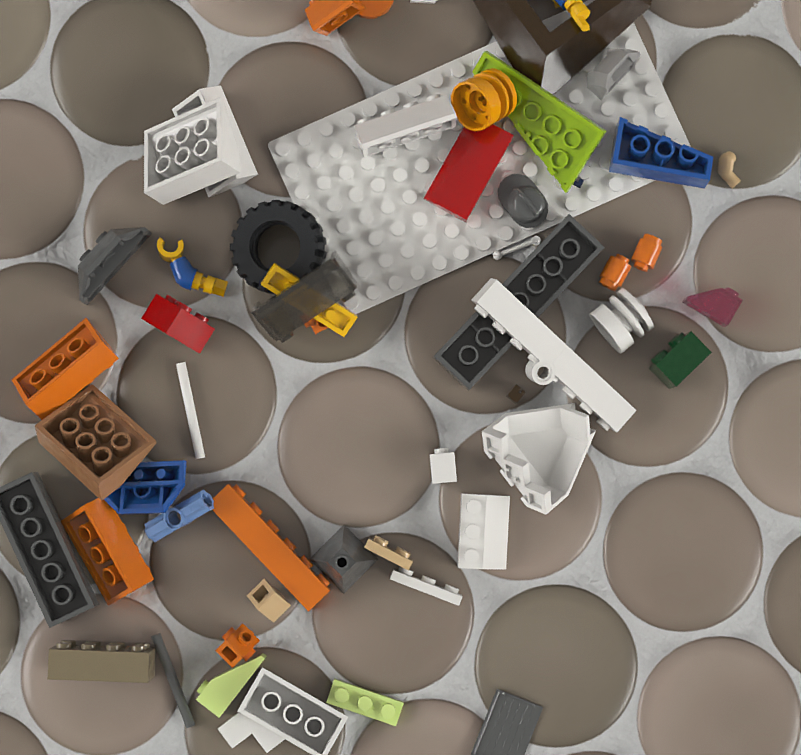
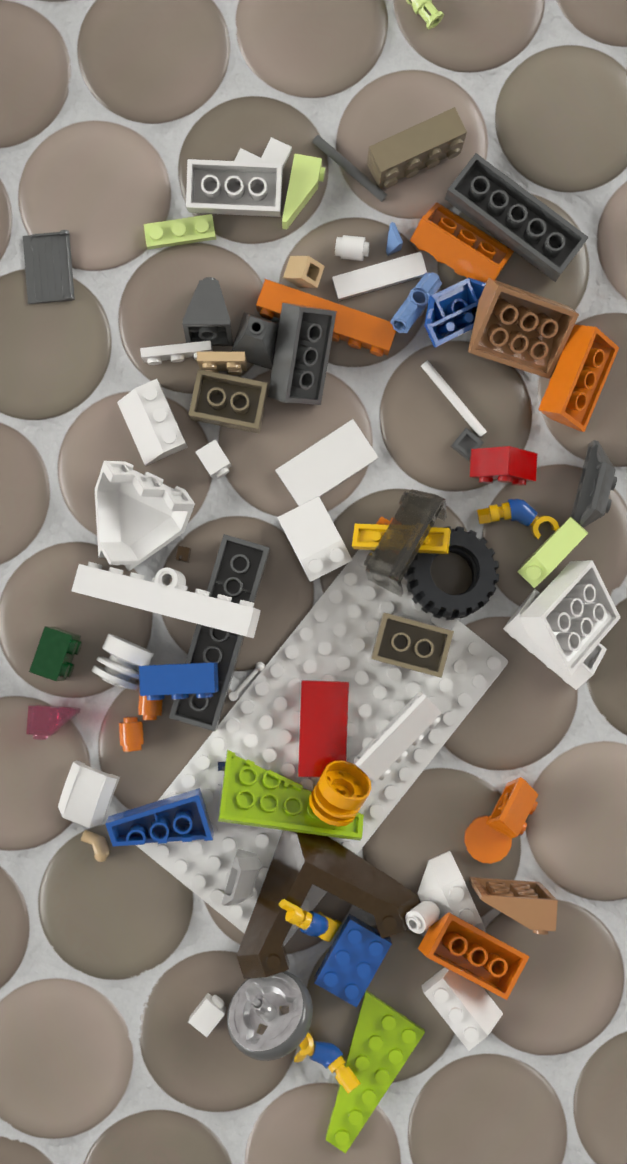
camera: 155 degrees right, 0 degrees up
(168, 588) = (394, 240): none -> medium blue slope
(177, 219) = (552, 552): none -> yellowish green slope
(199, 562) = (379, 276): none -> white tile
(200, 363) = (466, 442): none -> dark grey tile
(211, 601) = (352, 247): none -> white brick
(237, 645) = (310, 221): orange brick -> none
(311, 521) = (301, 354): none -> dark grey slope
(340, 410) = (327, 463): none -> white tile
(349, 200) = (412, 645): none -> dark tan brick
(379, 605) = (208, 315): none -> dark grey slope
(387, 344) = (314, 539): none -> white slope
(401, 513) = (228, 401): none -> dark tan brick
(523, 200) = (261, 724): dark grey piece -> none
(578, 273) = (178, 680): none -> blue brick
(714, 218) = (87, 795): none -> white slope

